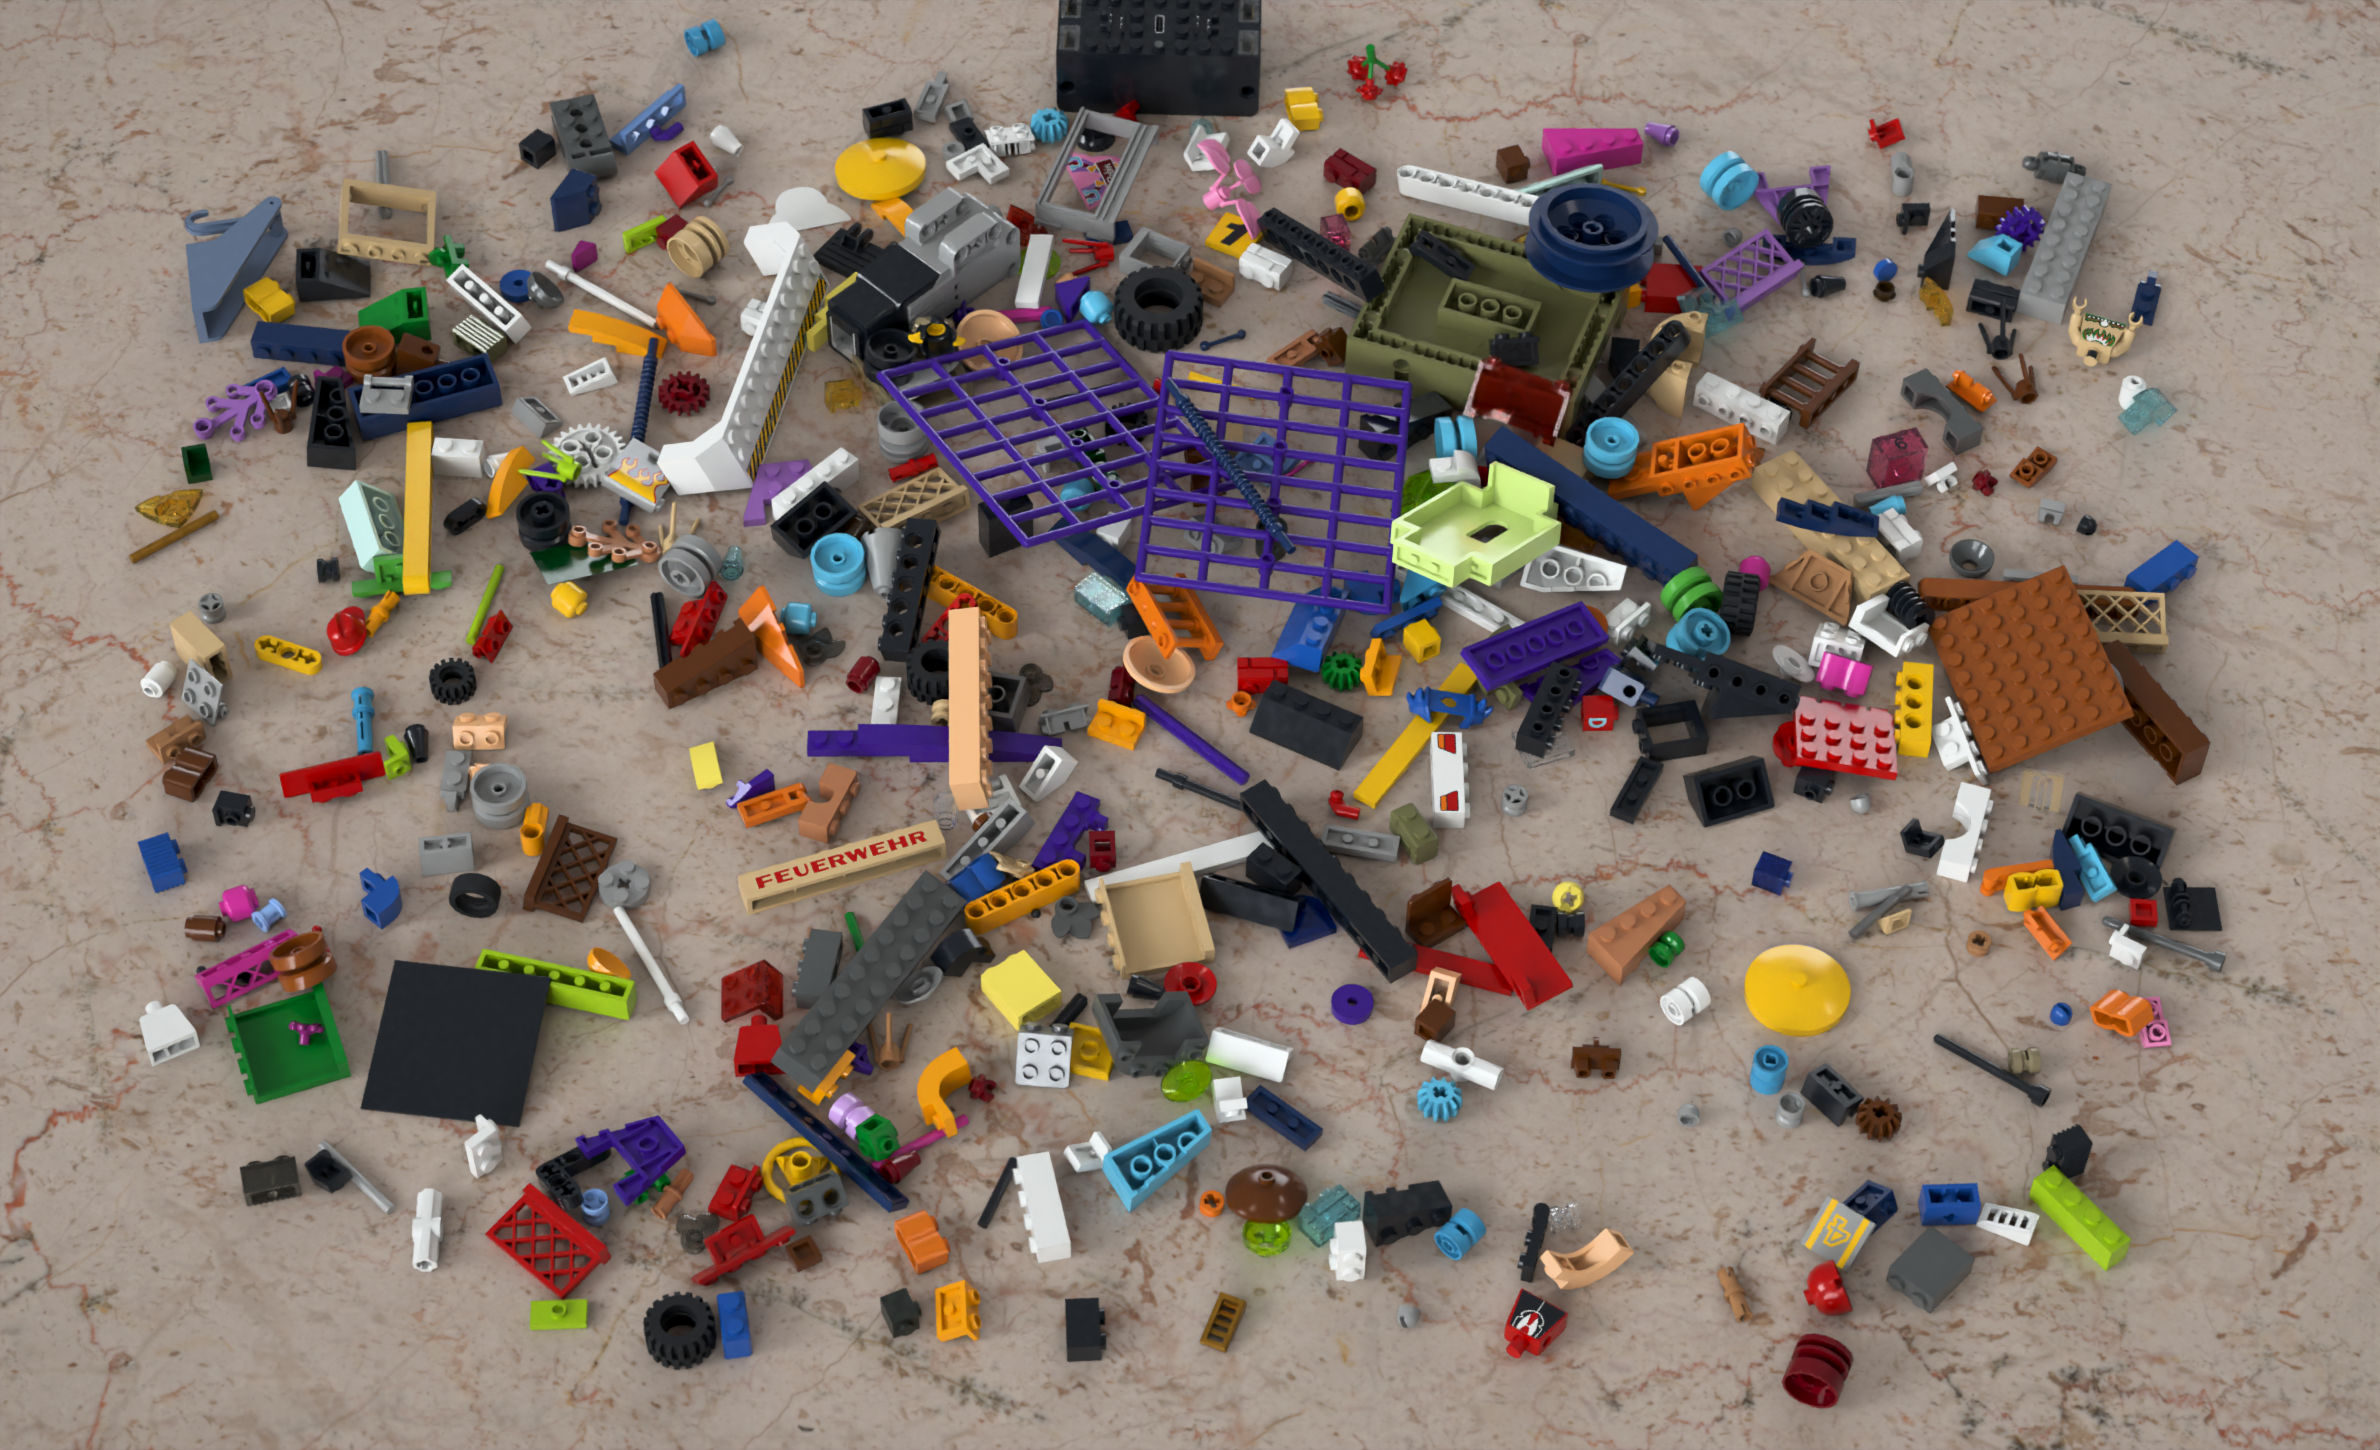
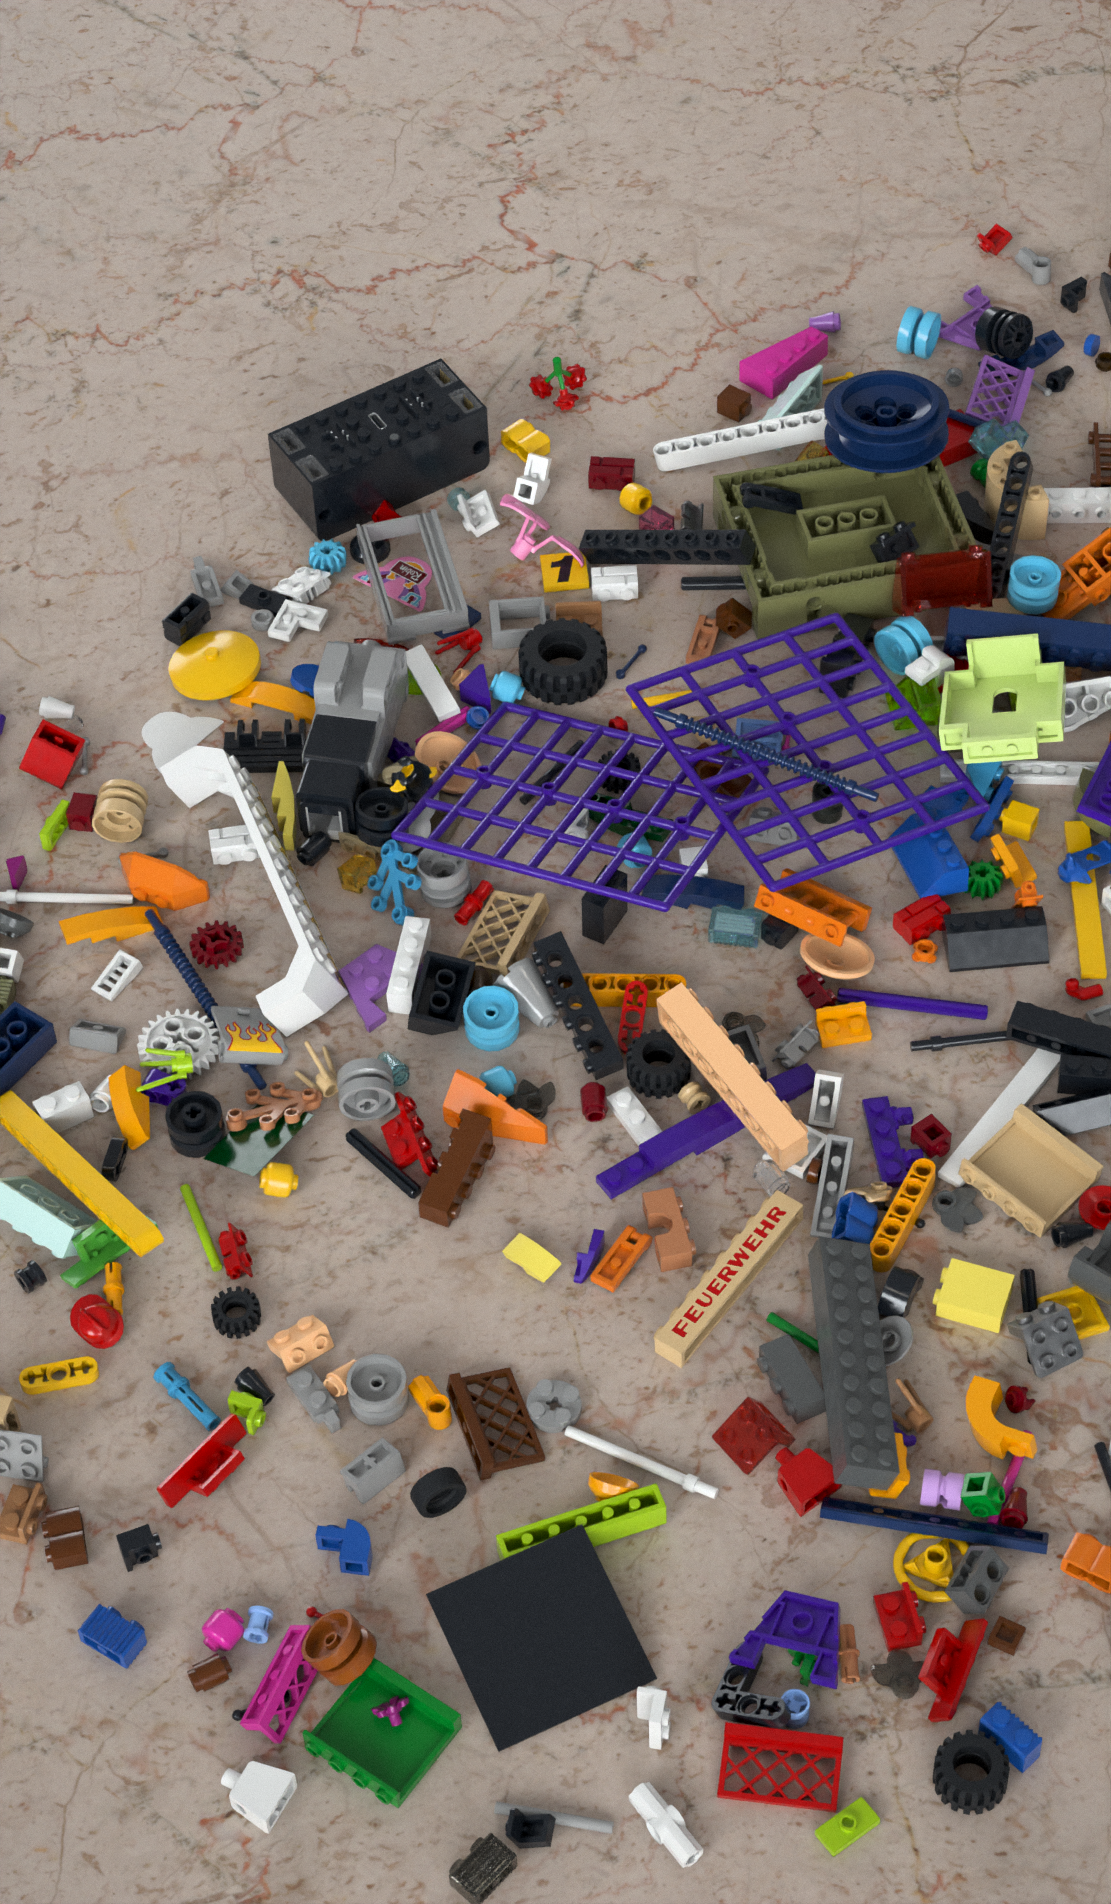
camera: 30 degrees left, 0 degrees up
(825, 357) = (313, 848): none -> black brick
(858, 415) = (391, 854): none -> dark azure plant
(1358, 702) = (1026, 896): none -> orange hinge

